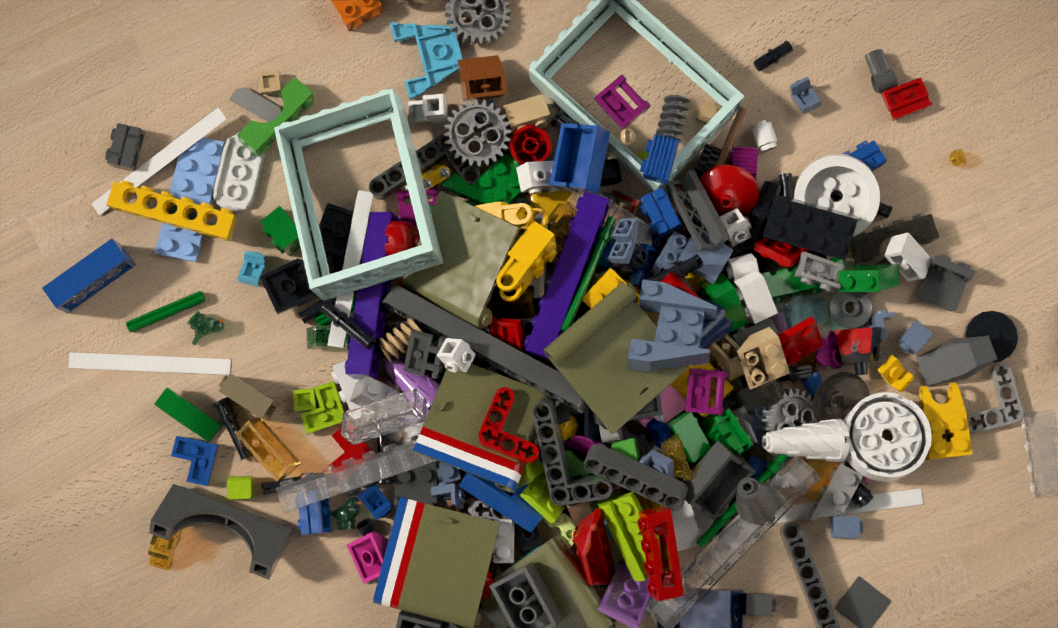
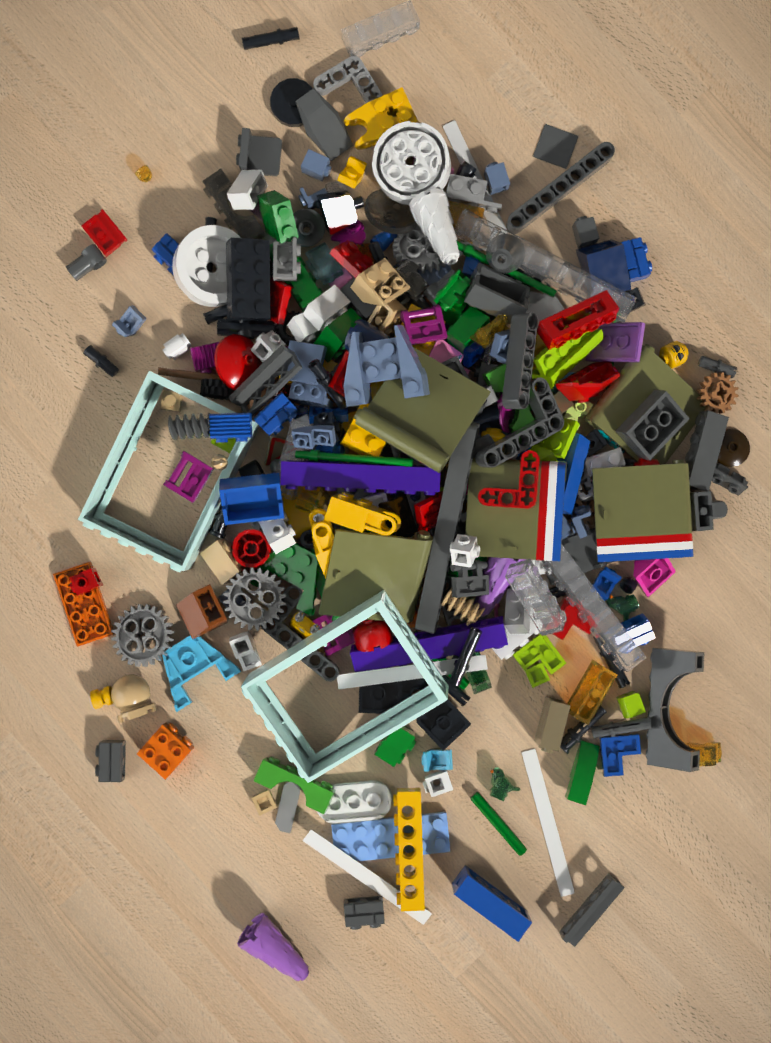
camera: 115 degrees left, 5 degrees up
(45, 378) = (591, 910): none -> dark grey fence
(128, 41) = (267, 943): none -> medium lavender cone
(221, 462) = (621, 727): none -> dark grey pin
(223, 255) = (444, 786): none -> white brick

